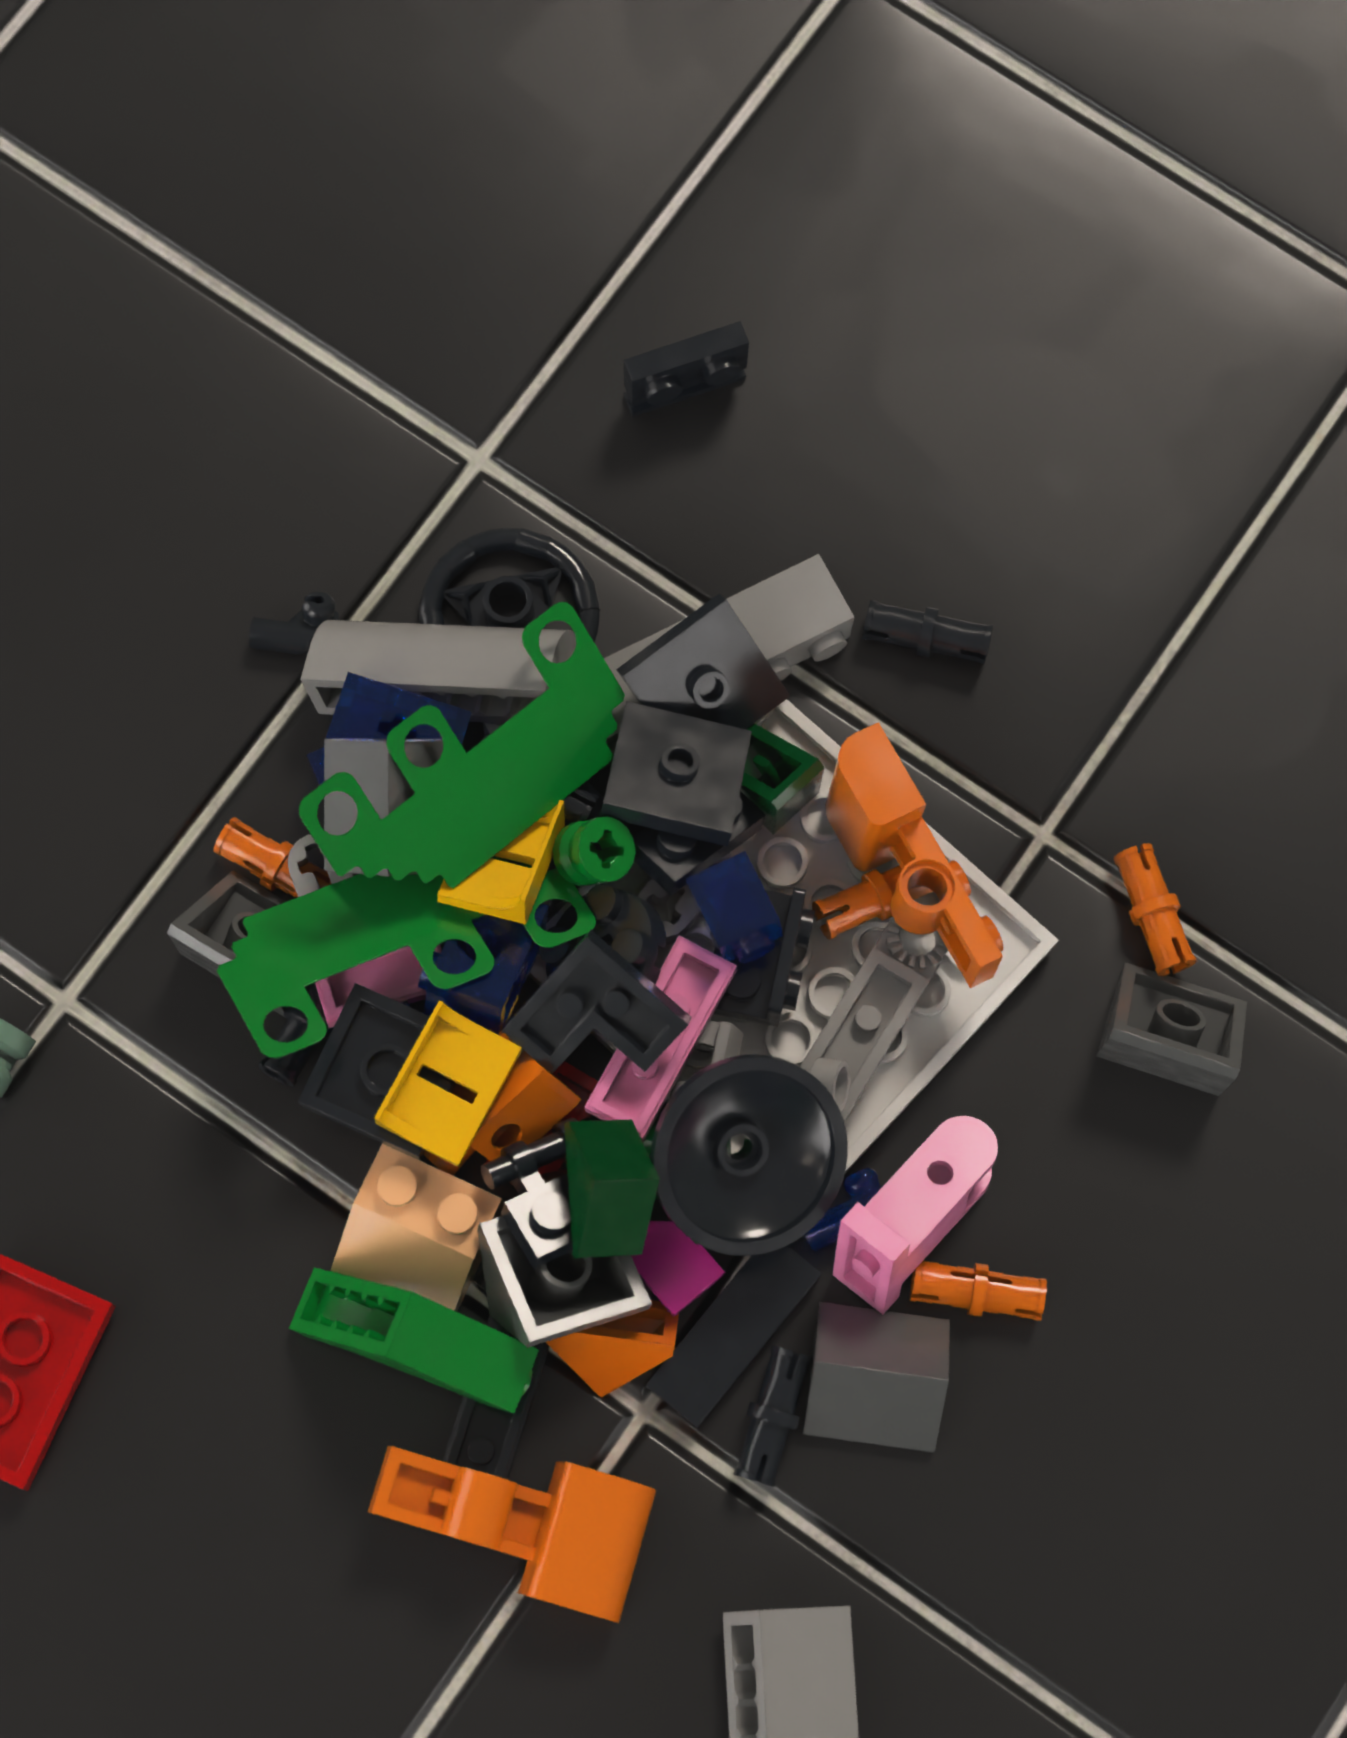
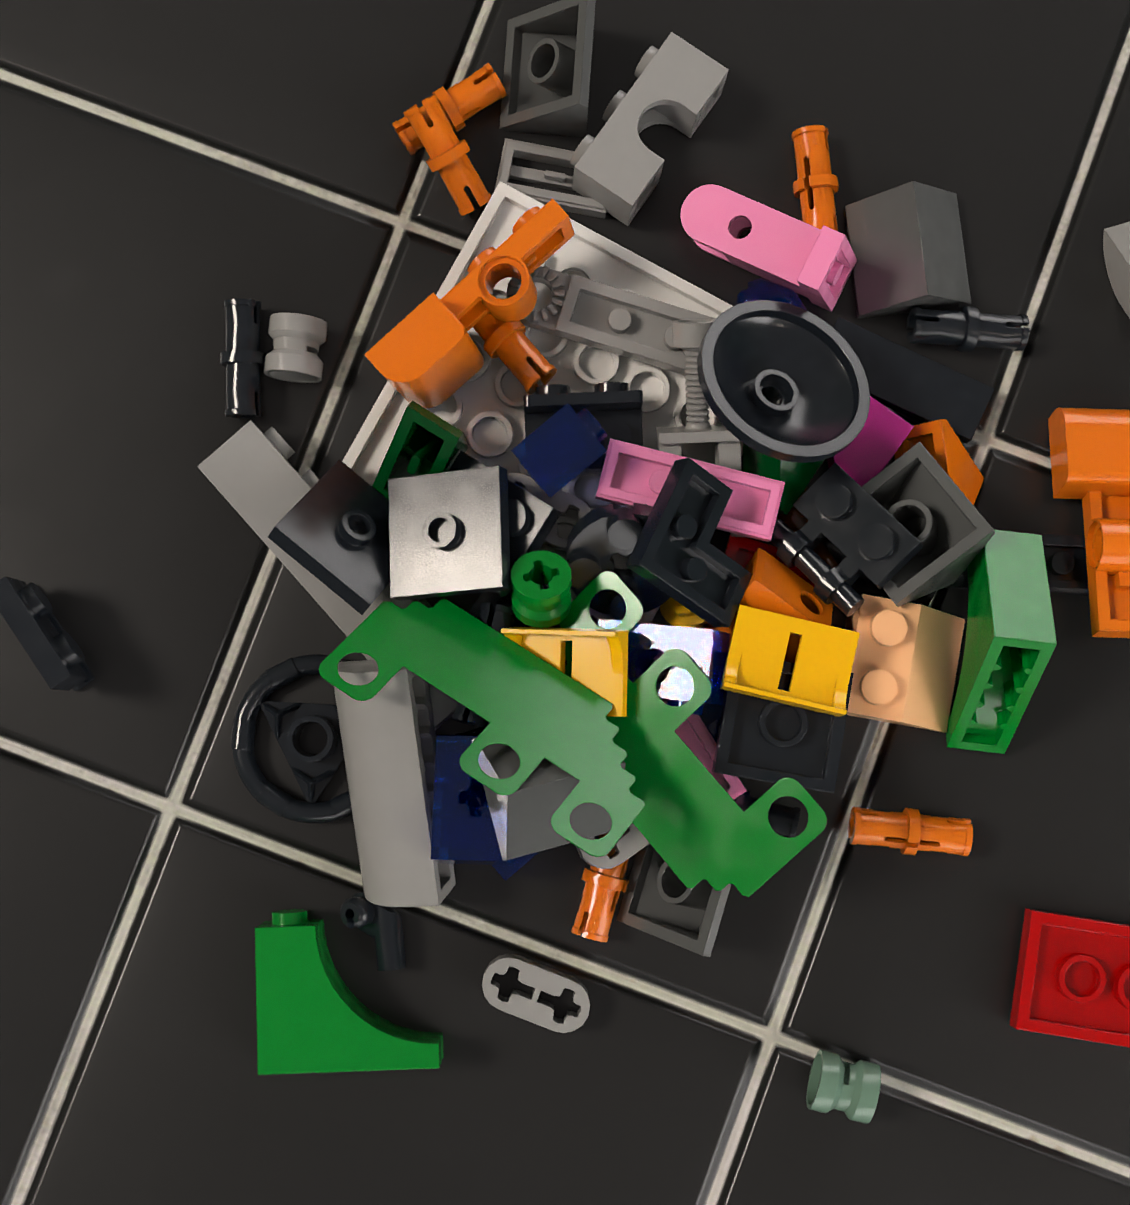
camera: 105 degrees left, 10 degrees up
(172, 758) = (530, 1006): none -> light grey beam
(227, 540) = (312, 1018): none -> green arch
(235, 1200) = (910, 831): none -> orange pin
(609, 1188) = (841, 495): dark green slope -> none
(925, 686) = (295, 347): none -> light grey wheel
(1032, 1055) = (548, 155): none -> light grey tile
(1099, 890) = (447, 155): none -> orange pin
(1126, 1148) = (672, 89): none -> light grey arch

